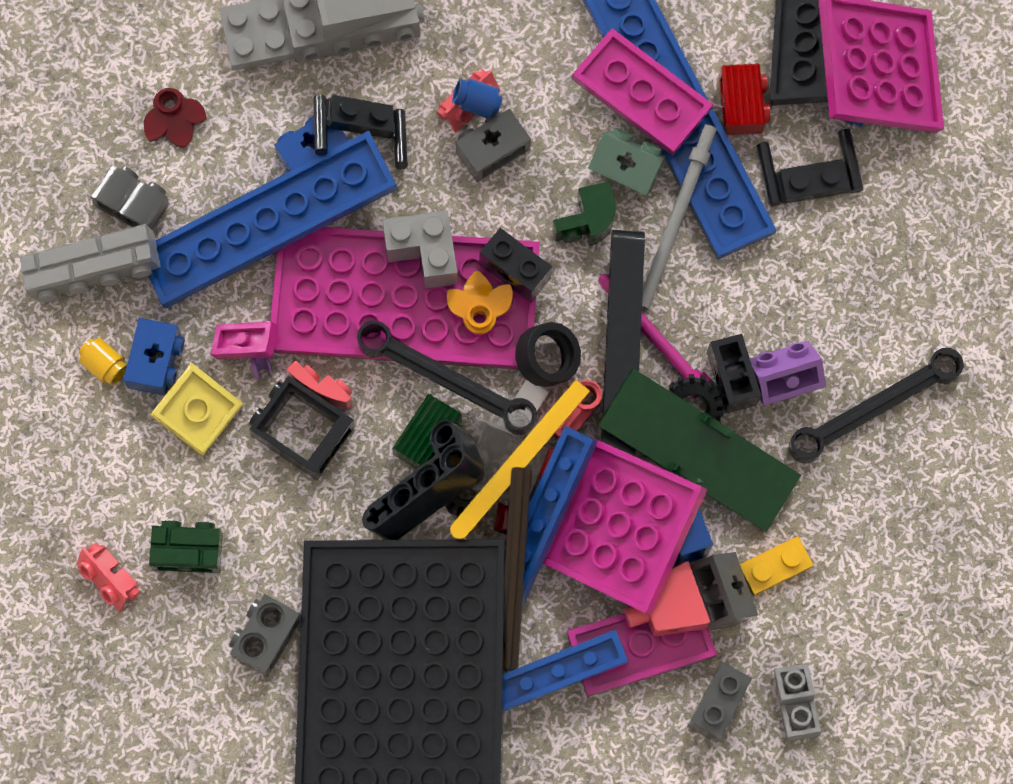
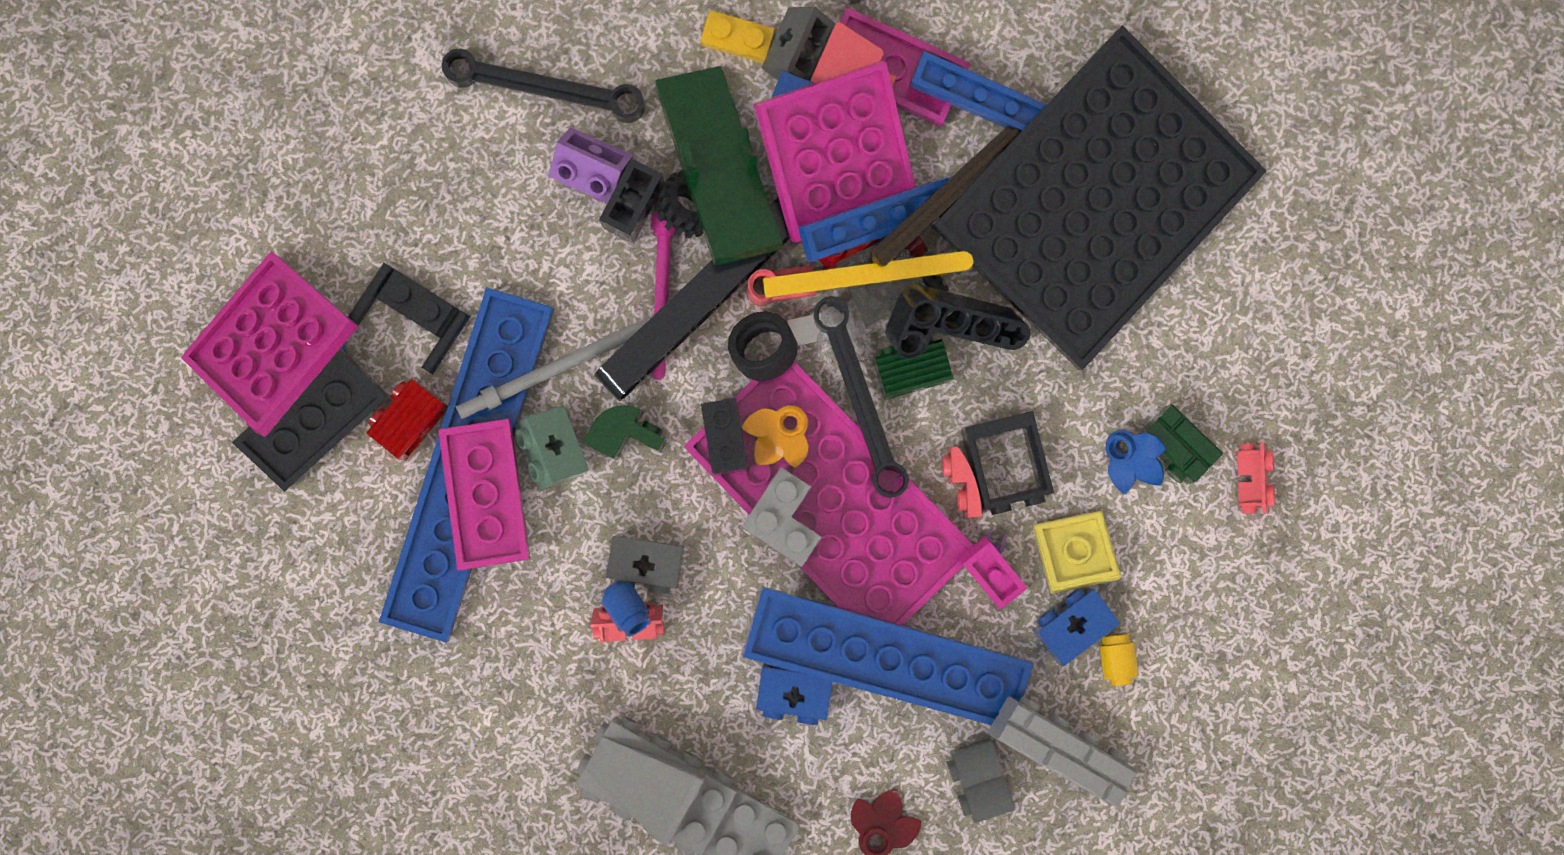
camera: 140 degrees left, 10 degrees up
(211, 508) = (1138, 462): none -> blue plate
(273, 638) = (1172, 318): dark grey brick -> none
(359, 117) = (734, 681): black plate -> none

